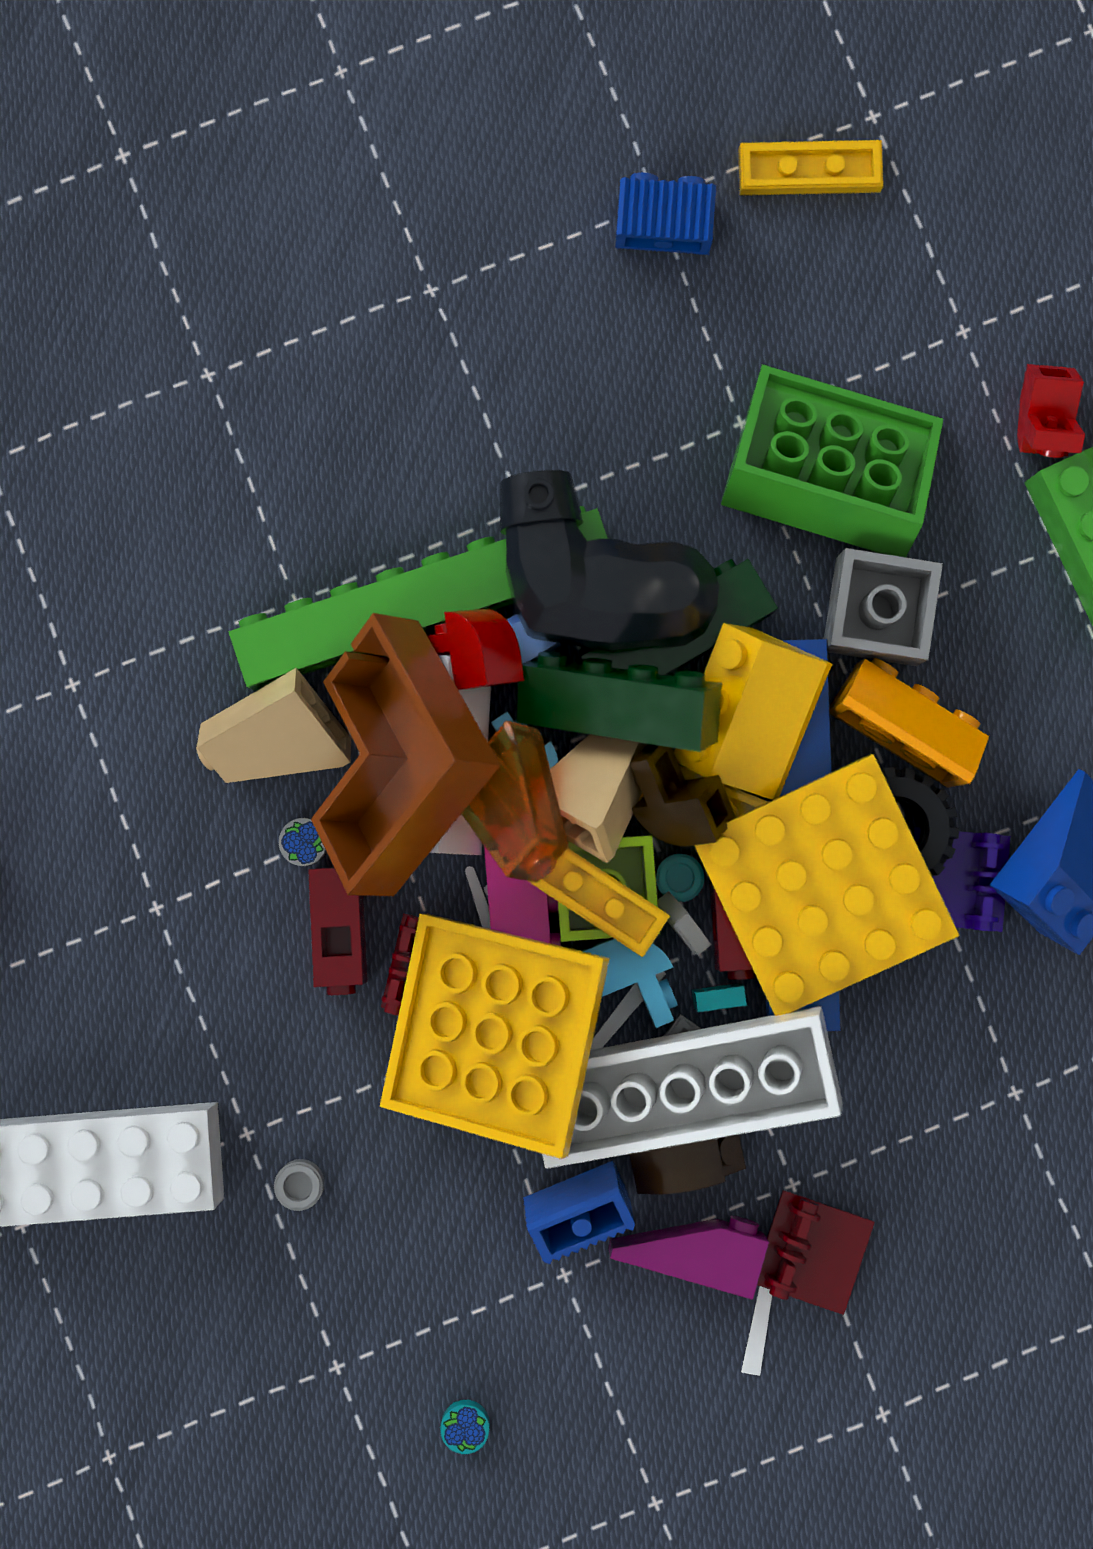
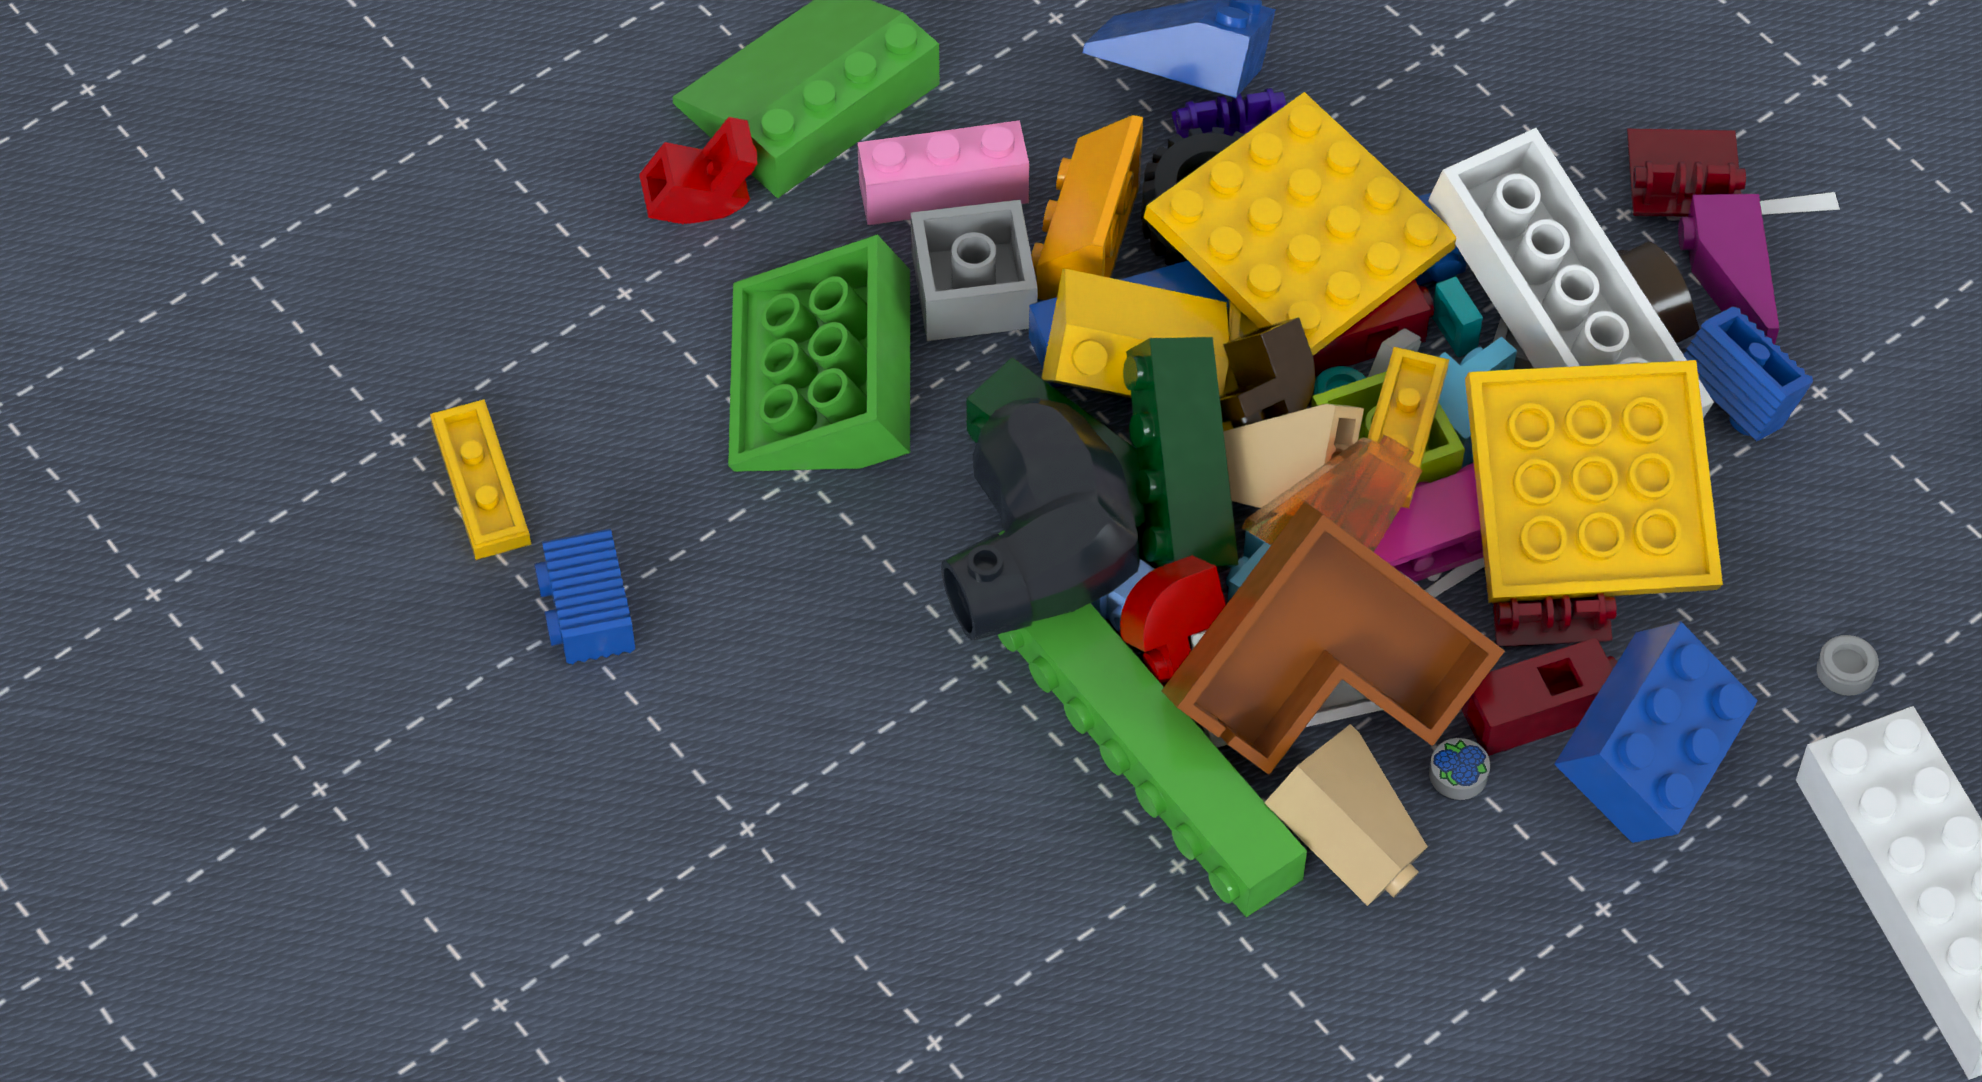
camera: 105 degrees left, 30 degrees down
(259, 995) = (1656, 732): none -> blue brick
(996, 617) = (942, 170): none -> bright pink brick

